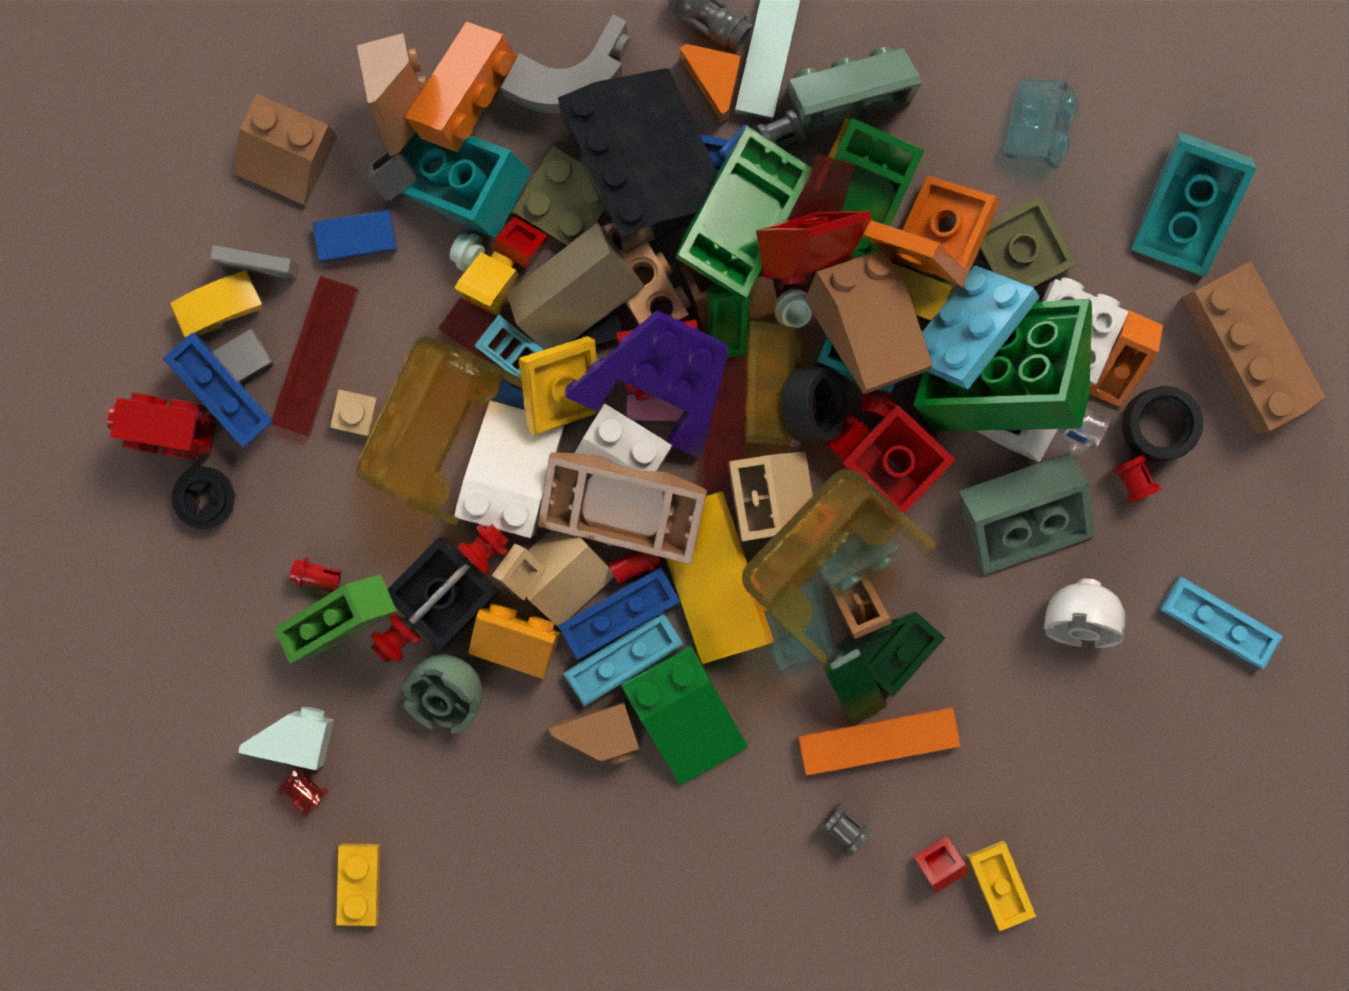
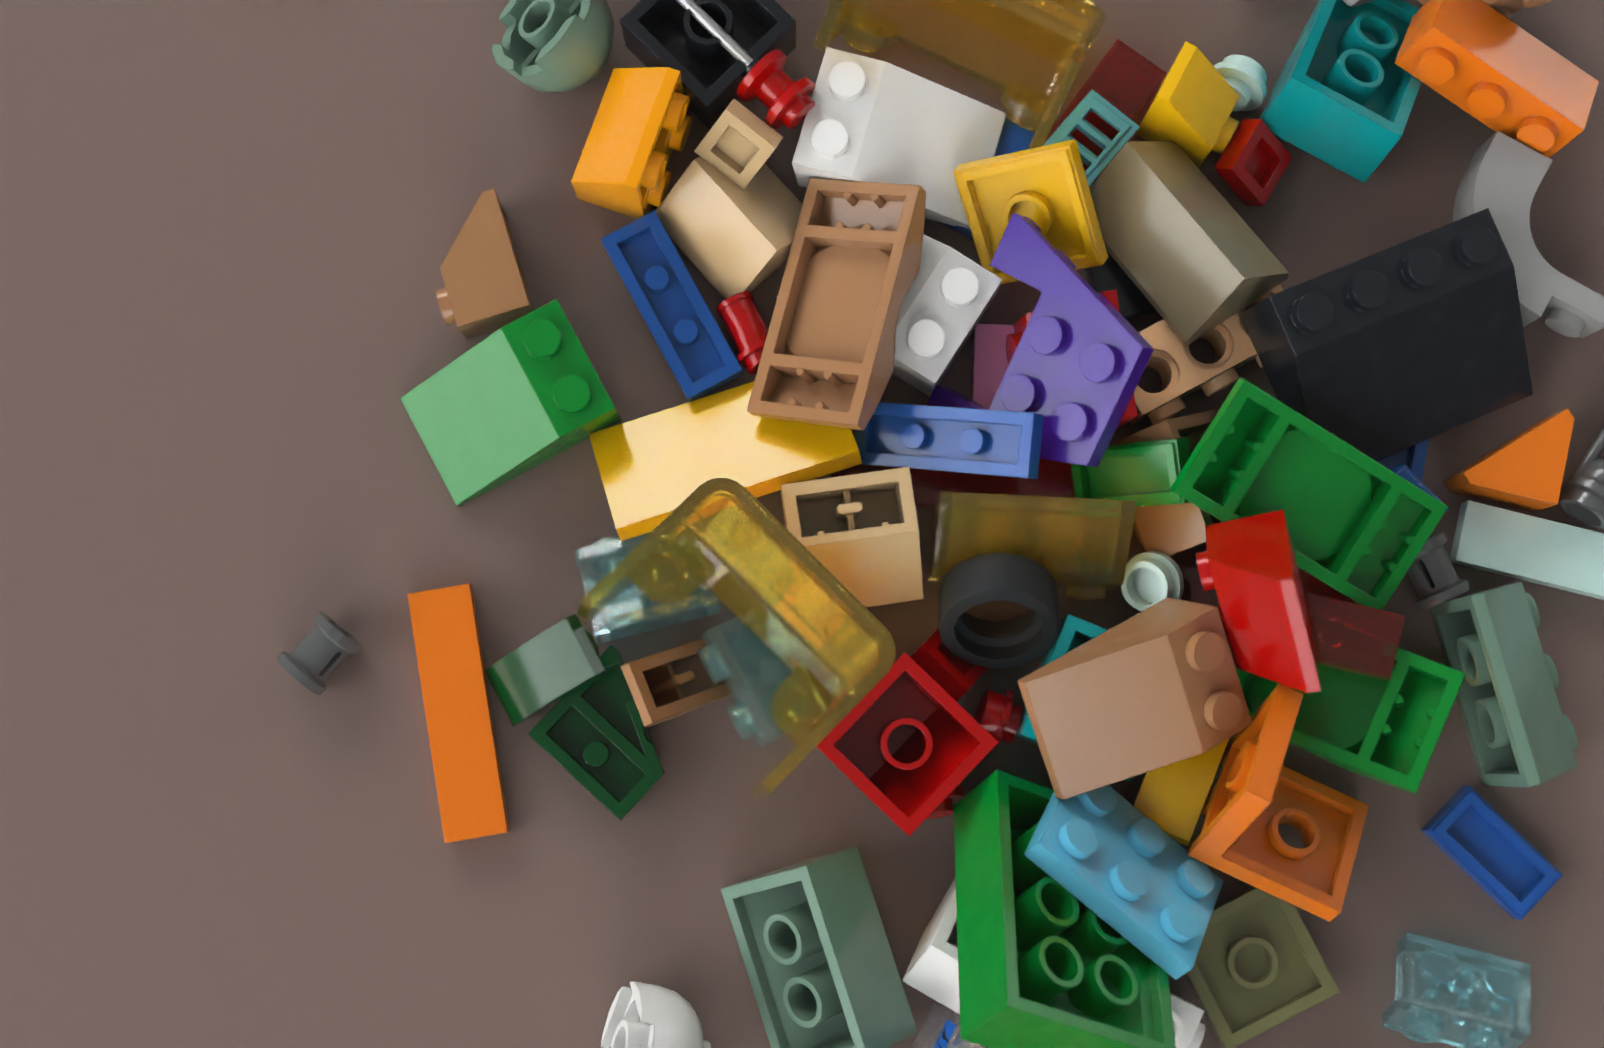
camera: 85 degrees right, 5 degrees down
(560, 199) = (1322, 222): olive plate -> none
(623, 659) = (601, 314): medium azure tile -> none
(709, 433) = (953, 440): none -> plate
(941, 864) = (256, 807): red plate -> none
(952, 99) = (1491, 852): none -> blue tile
(1001, 885) = (217, 905): yellow plate -> none

